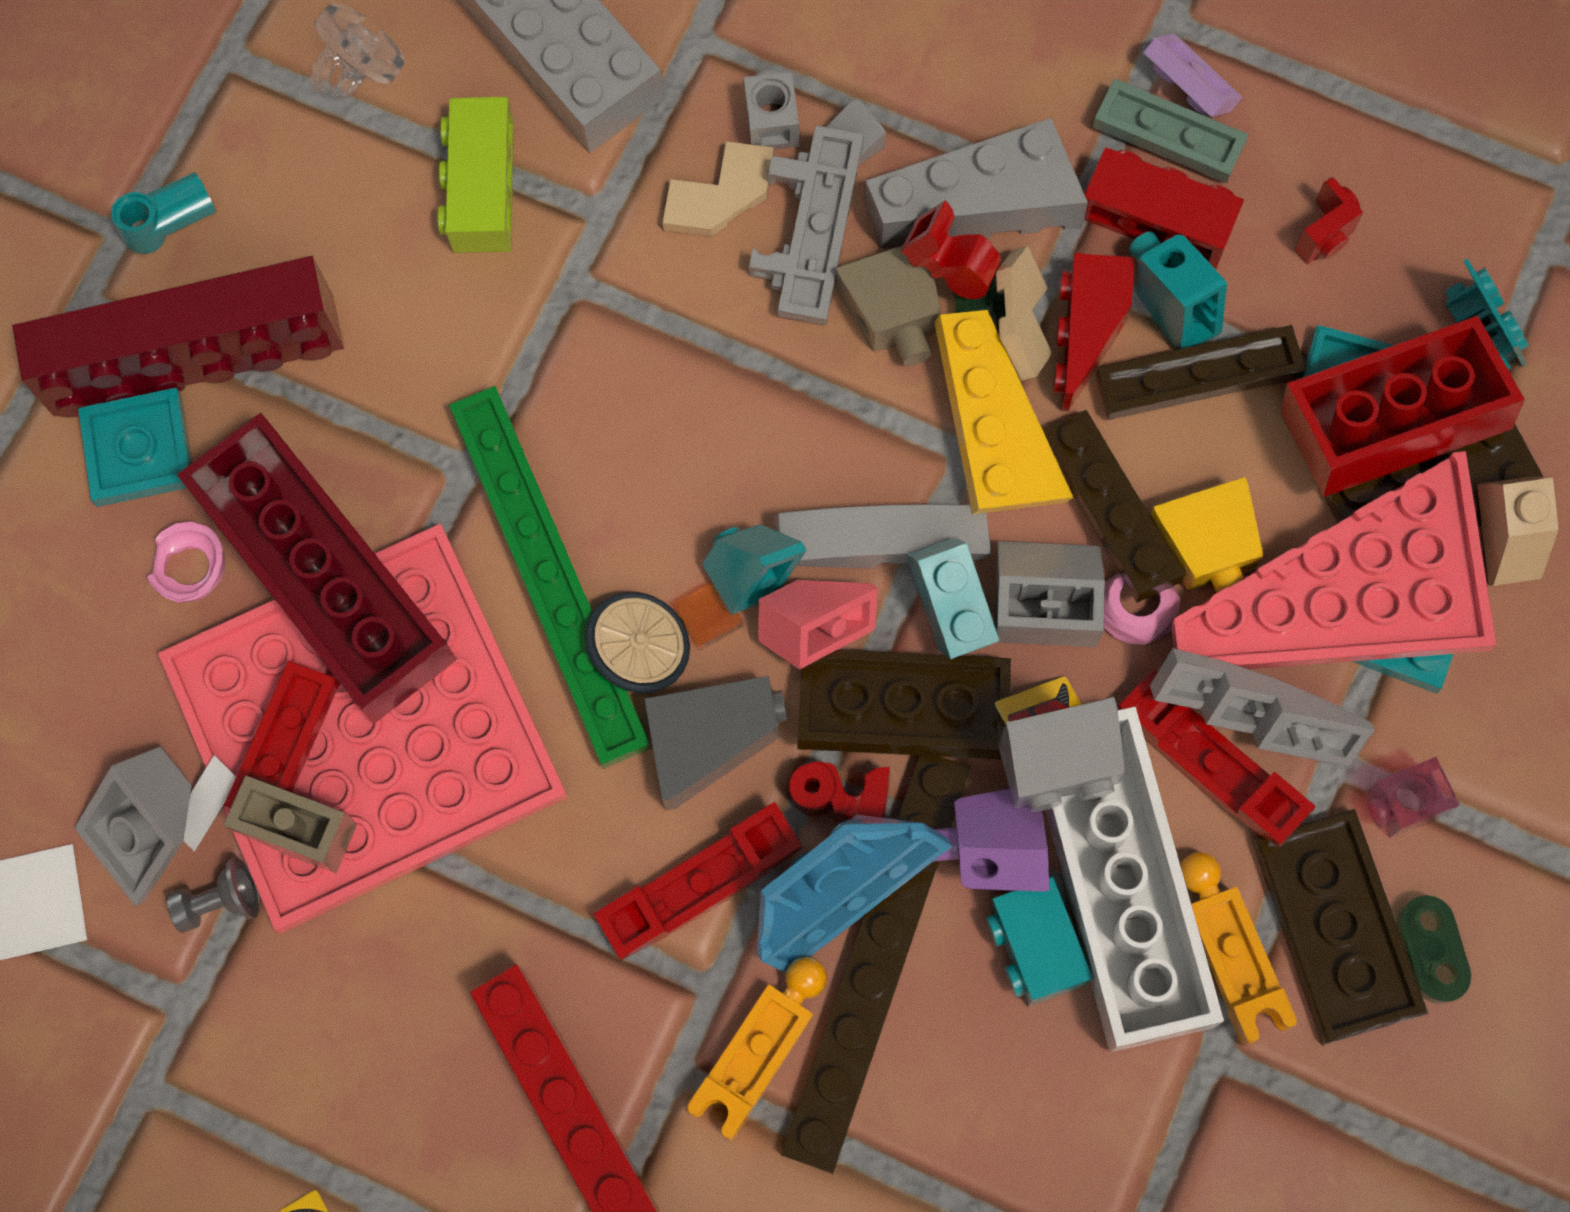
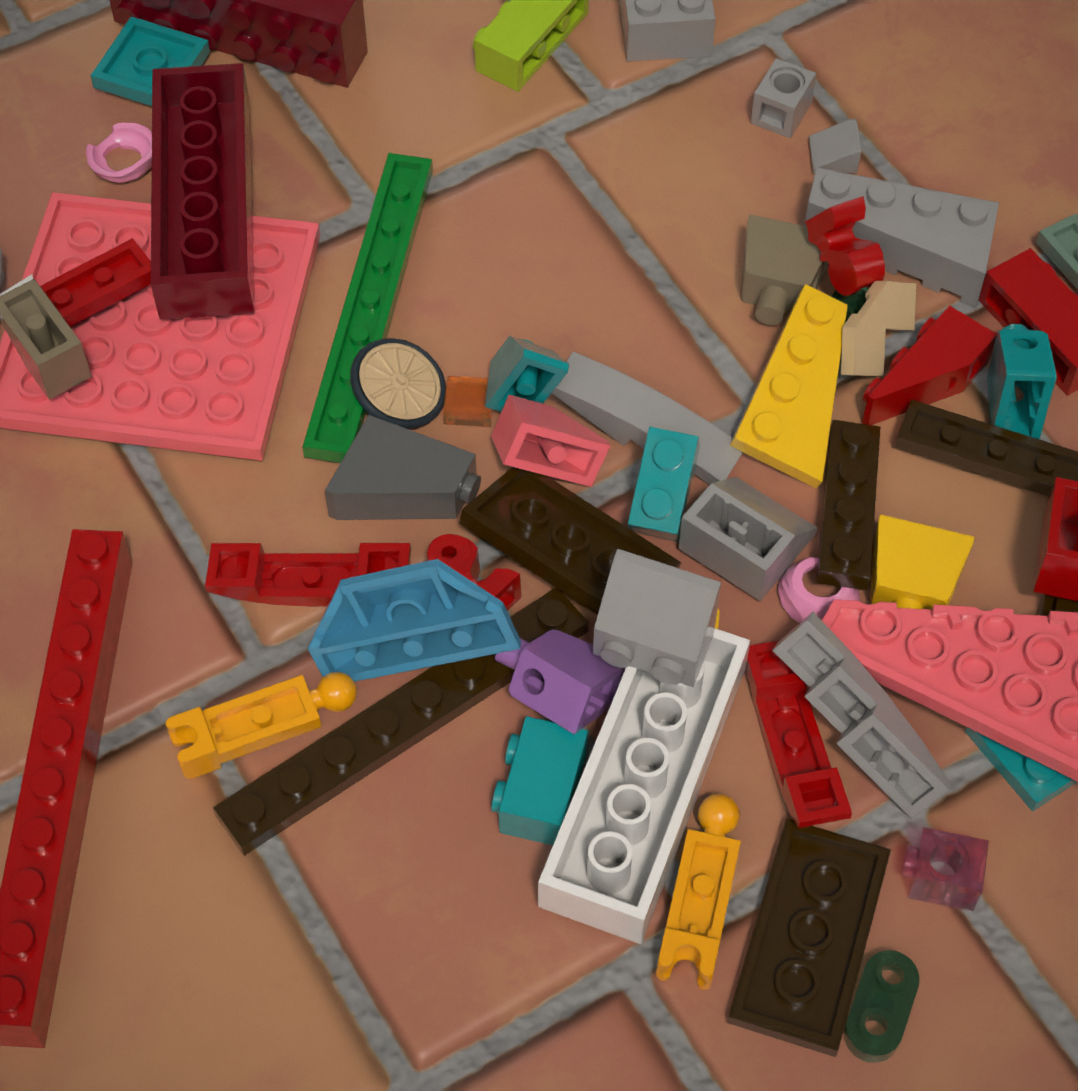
camera: 30 degrees right, 15 degrees down
(709, 207) = (684, 136): tan tile -> none
(825, 190) = (781, 169): light grey hinge -> none

